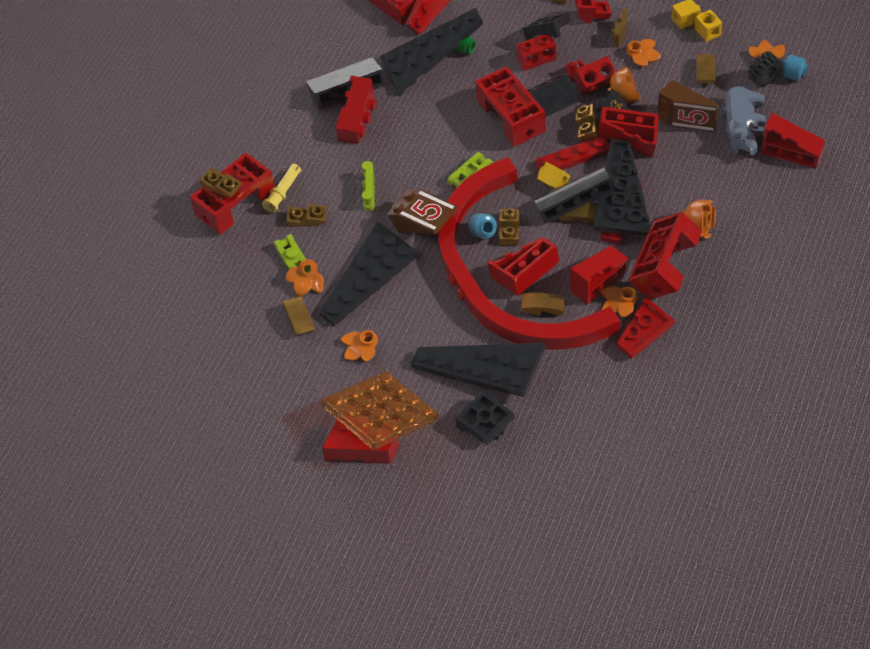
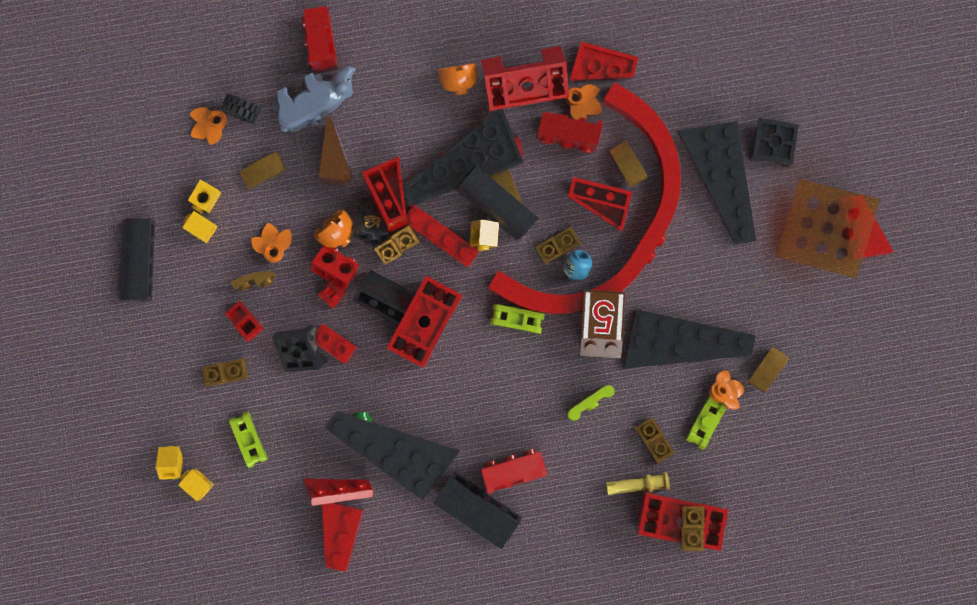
camera: 130 degrees left, 30 degrees up
(358, 346) = (765, 297): orange plate -> none
(794, 67) = (218, 85): dark azure head -> none

